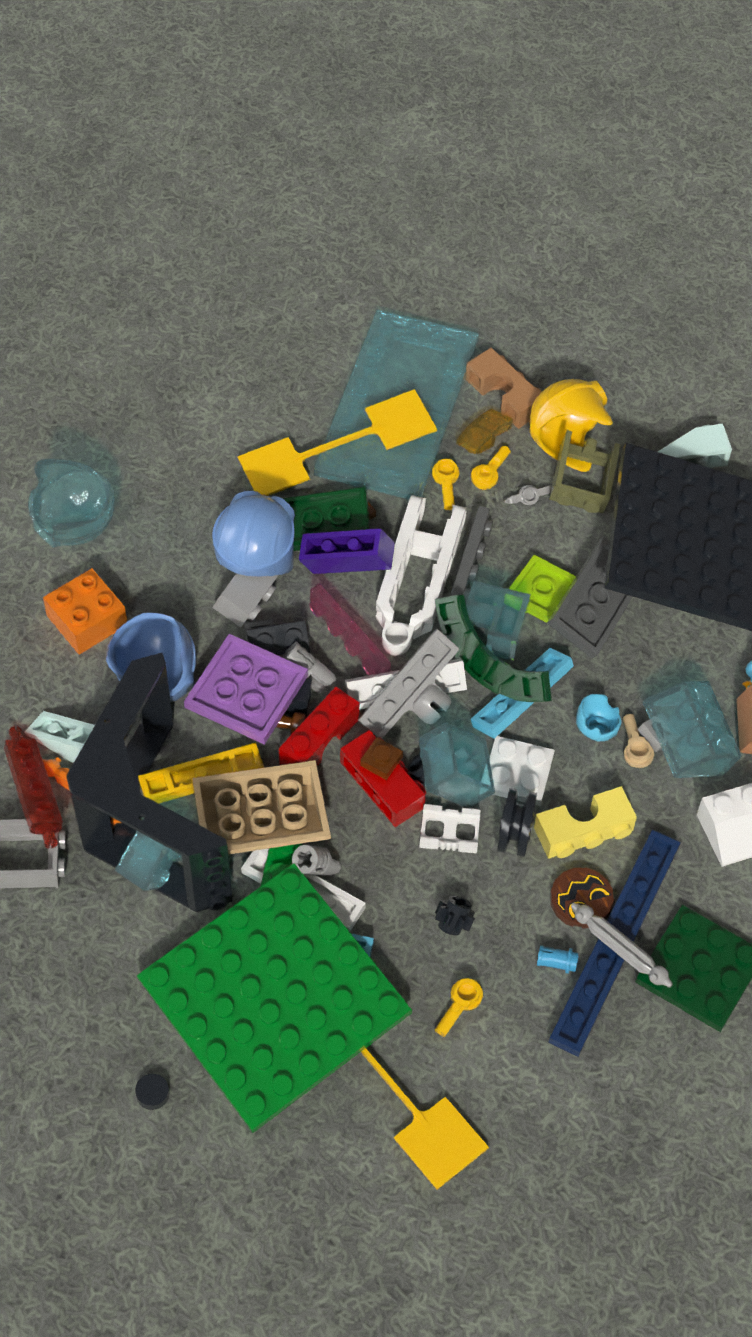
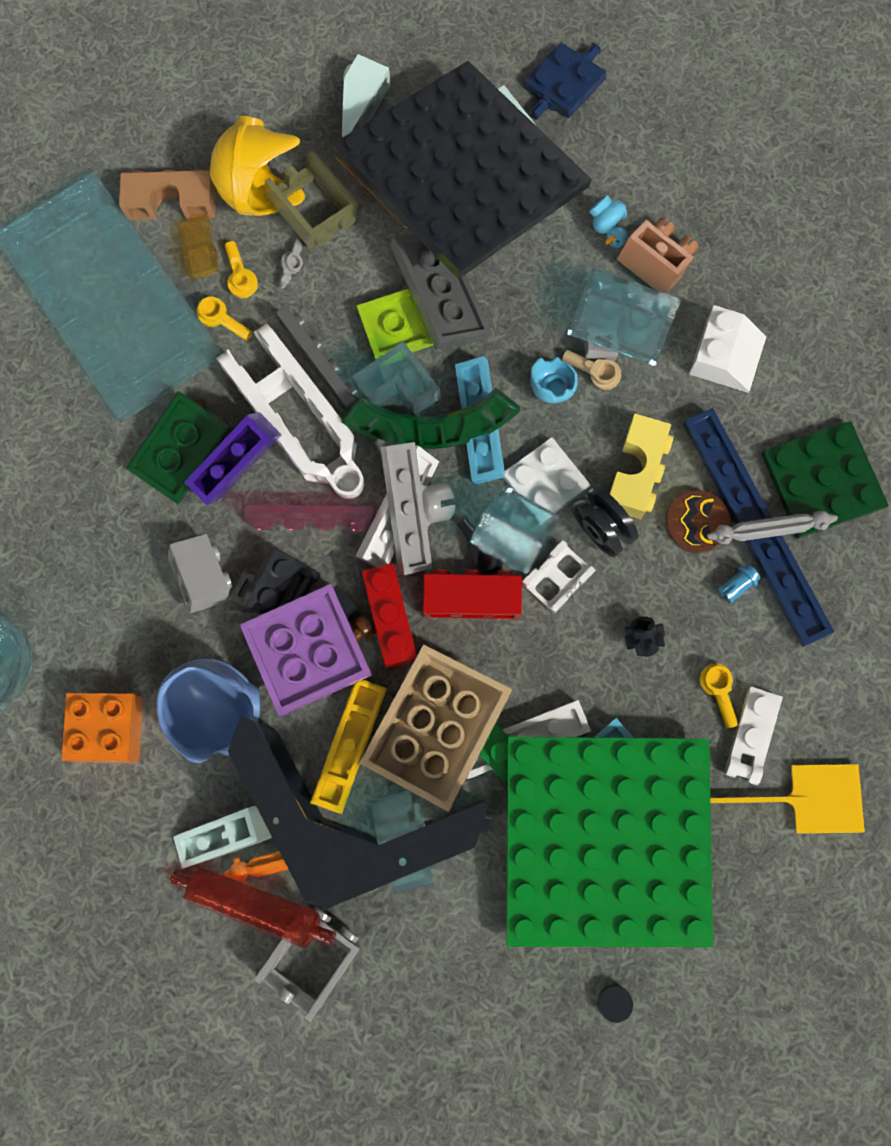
camera: 45 degrees left, 20 degrees up
(255, 535) = (155, 526): medium blue piece -> none
(281, 466) = (89, 448): yellow hinge -> none
(315, 860) = (514, 717): light grey hinge -> none
(318, 672) = (317, 577): light grey hinge -> none
(381, 758) = (462, 586): reddish brown plate -> none
(446, 1052) = (753, 734): none -> white plate

